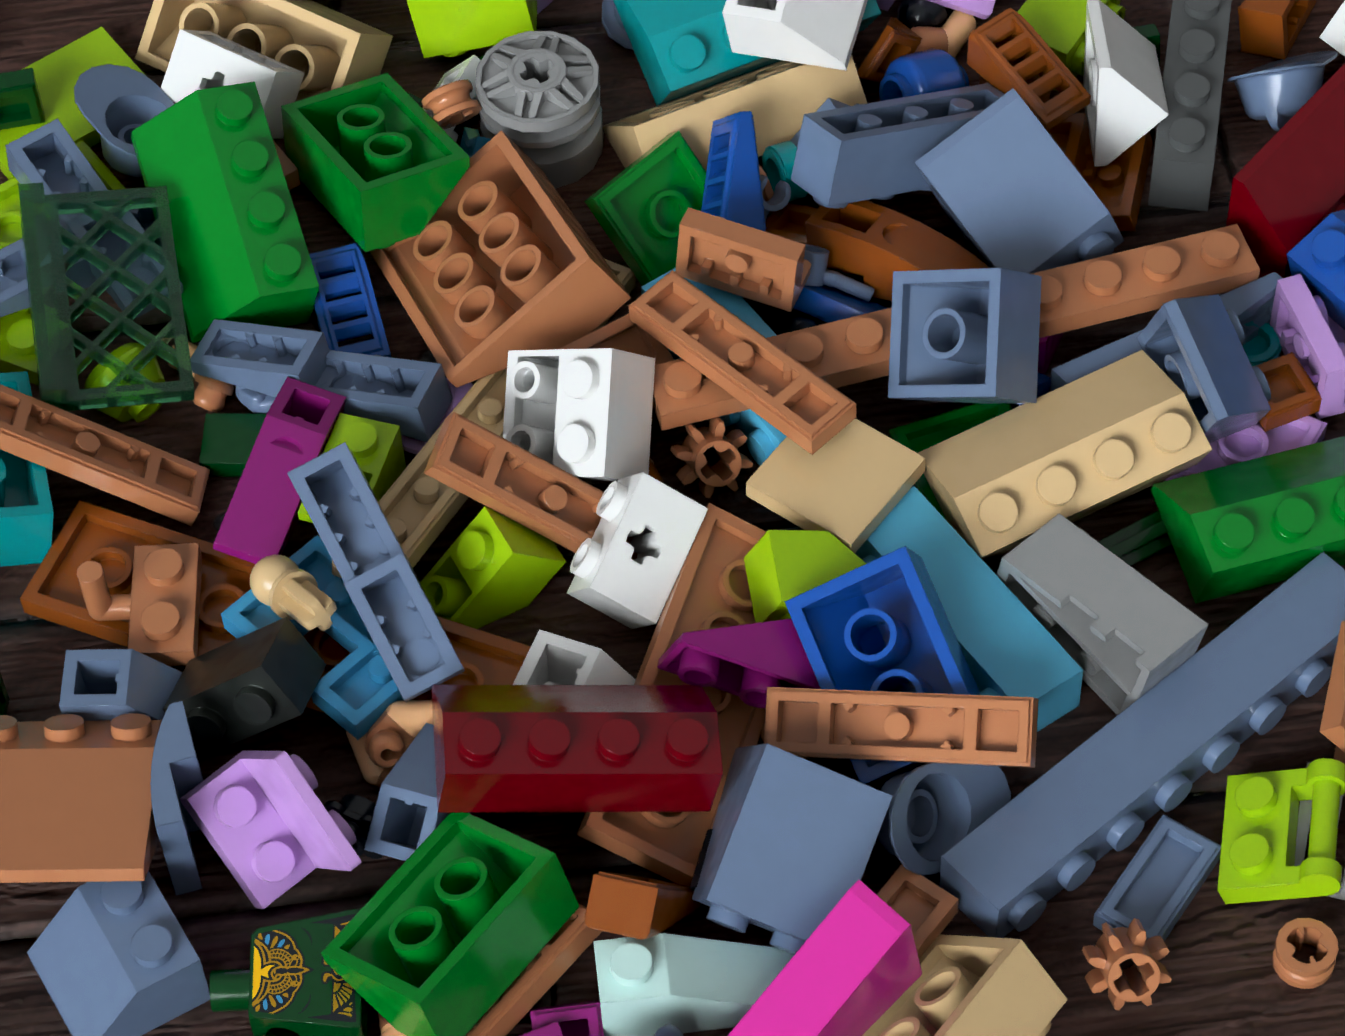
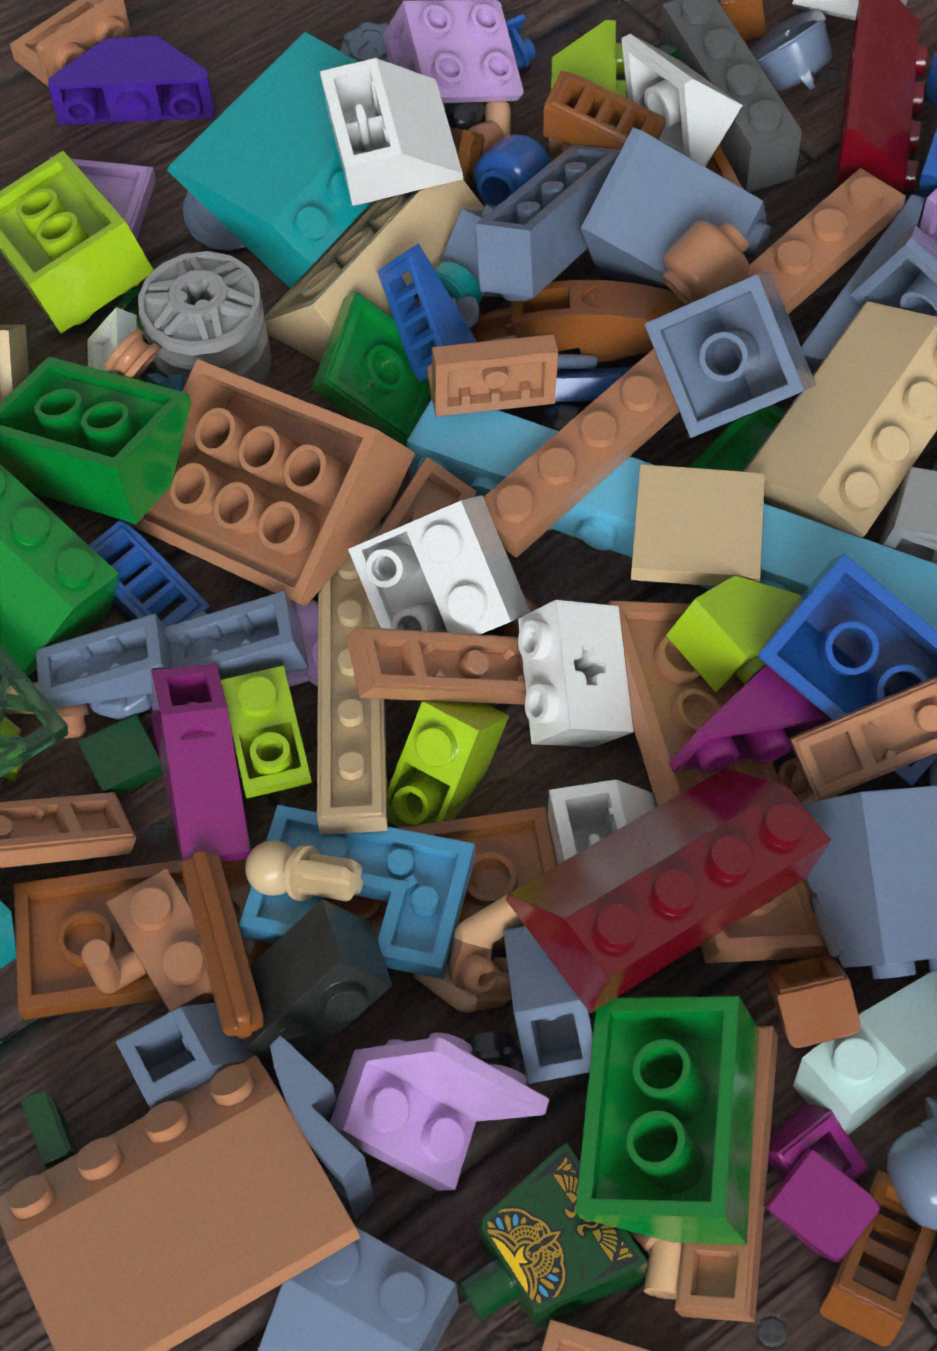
camera: 30 degrees left, 5 degrees up
(196, 619) = (222, 945): none -> dark orange axle
(376, 572) = (376, 813): sand blue slope -> none
(726, 447) = (564, 561): nougat gear -> none
(742, 362) = (561, 462): nougat plate -> none
(1010, 240) = (705, 261): none -> nougat head

